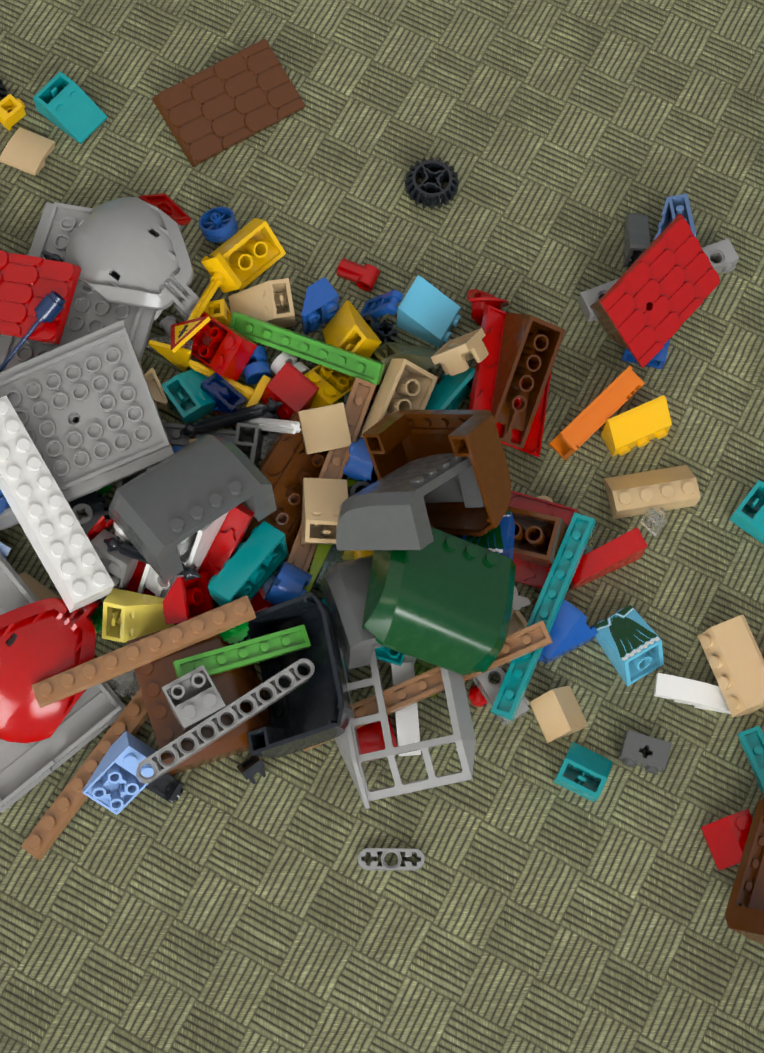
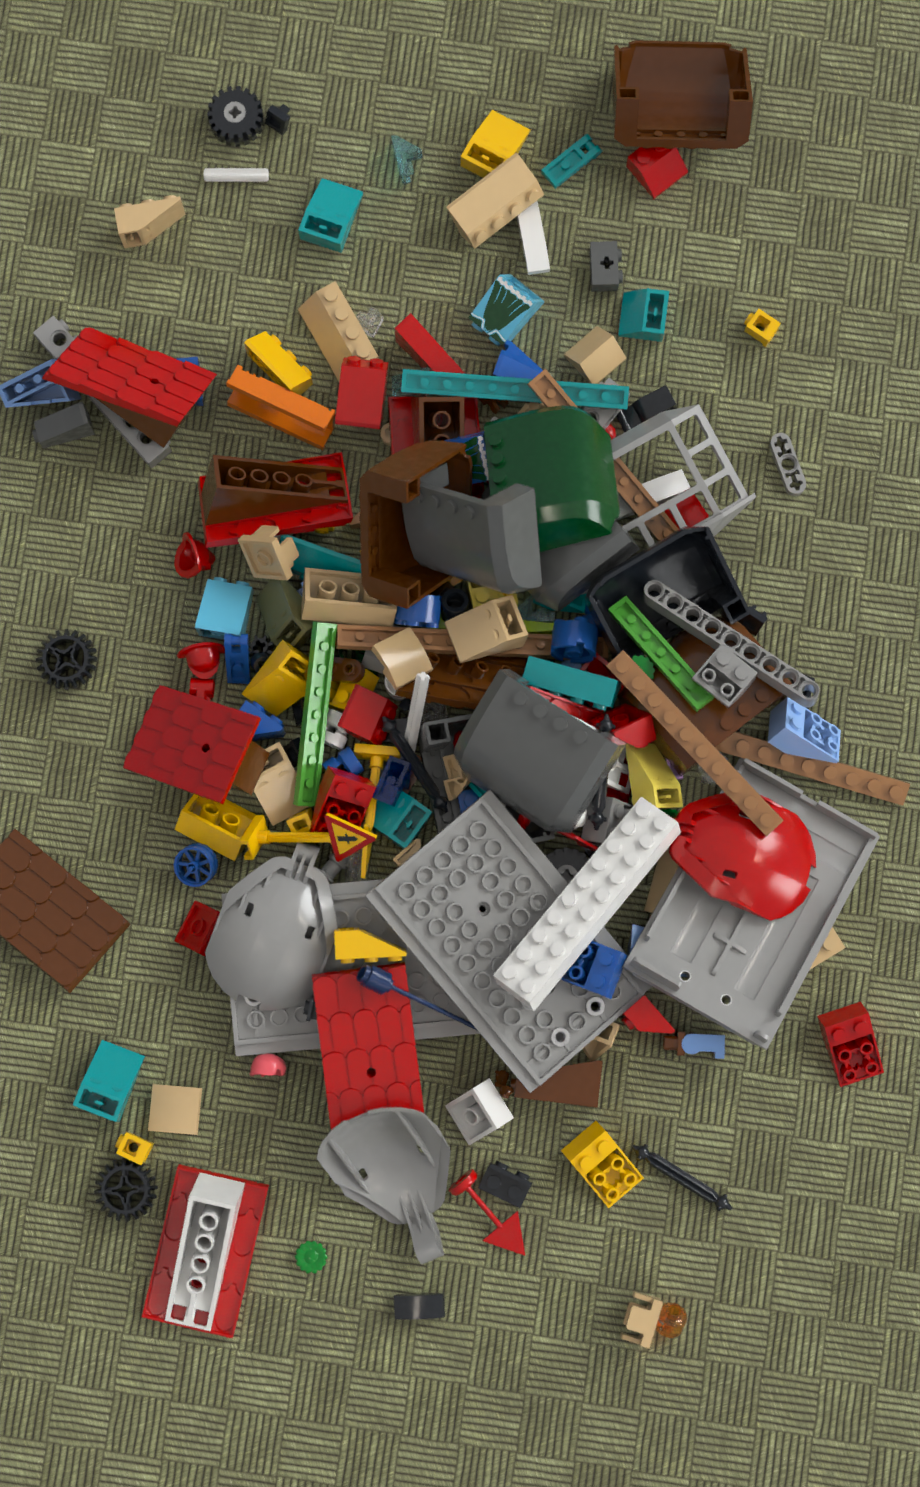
camera: 105 degrees left, 10 degrees up
(28, 225) = (268, 1065): none -> coral hair
(87, 311) = (358, 943): none -> yellow slope
(309, 246) = (197, 746): none -> red piece
(336, 386) = (341, 669): none -> reddish brown plate
(392, 279) = (202, 658): none -> red helmet
(490, 742) = (646, 408): none -> black piece
(526, 883) = (769, 325): none -> yellow brick
(585, 483) = (362, 392): none -> red slope

